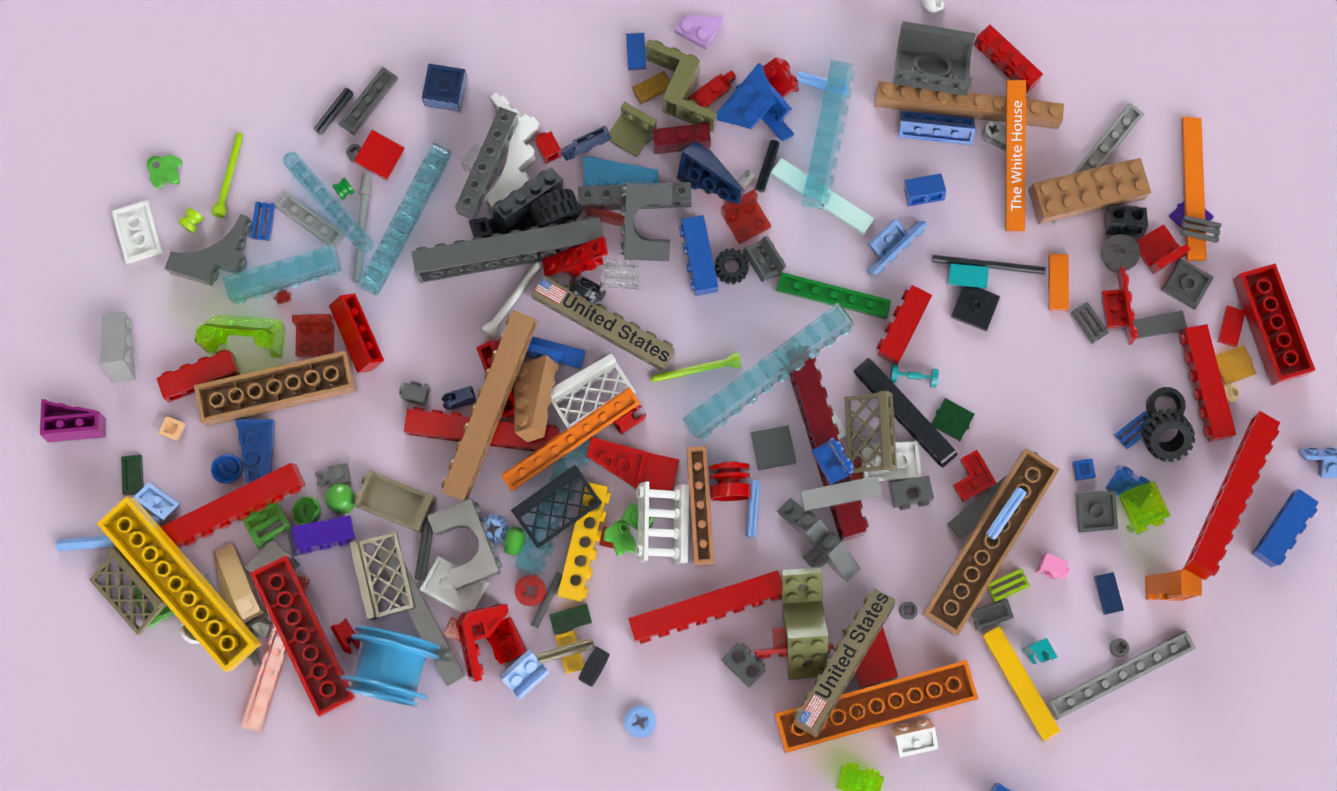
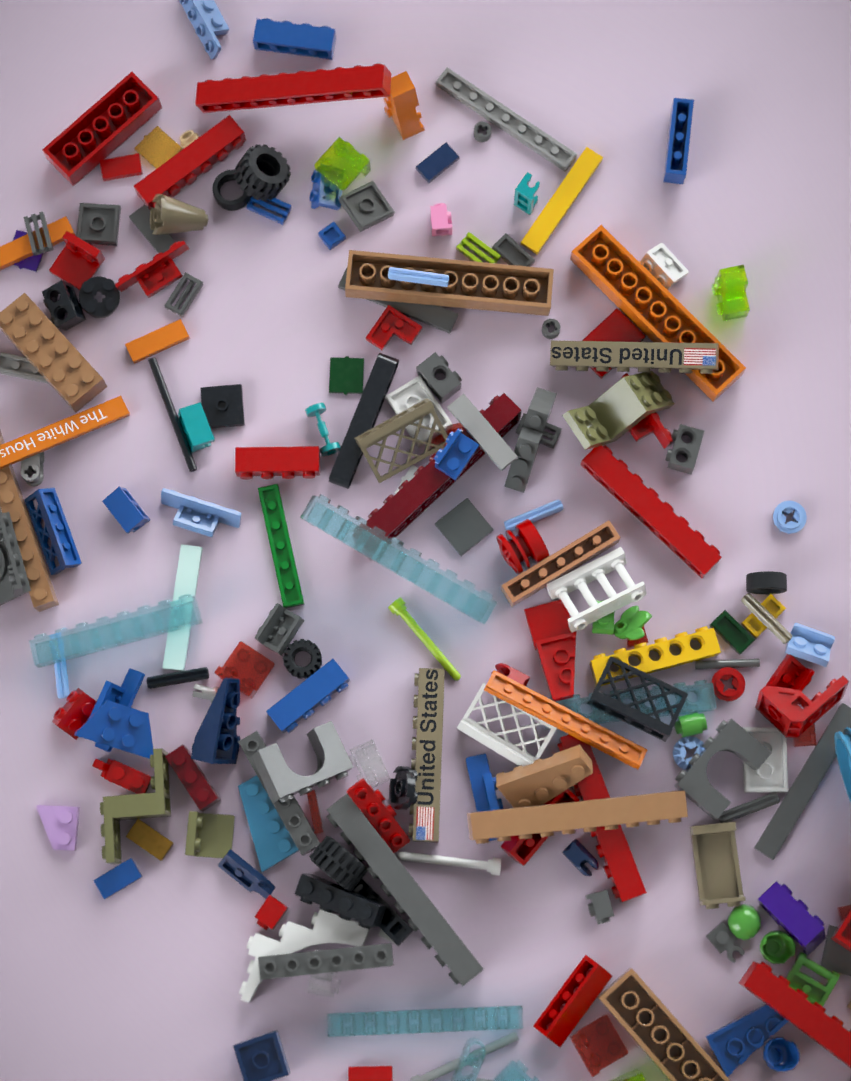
camera: 115 degrees left, 0 degrees up
(365, 579) = (805, 851): fence -> none
(1161, 346) = (175, 216): none -> dark tan cone

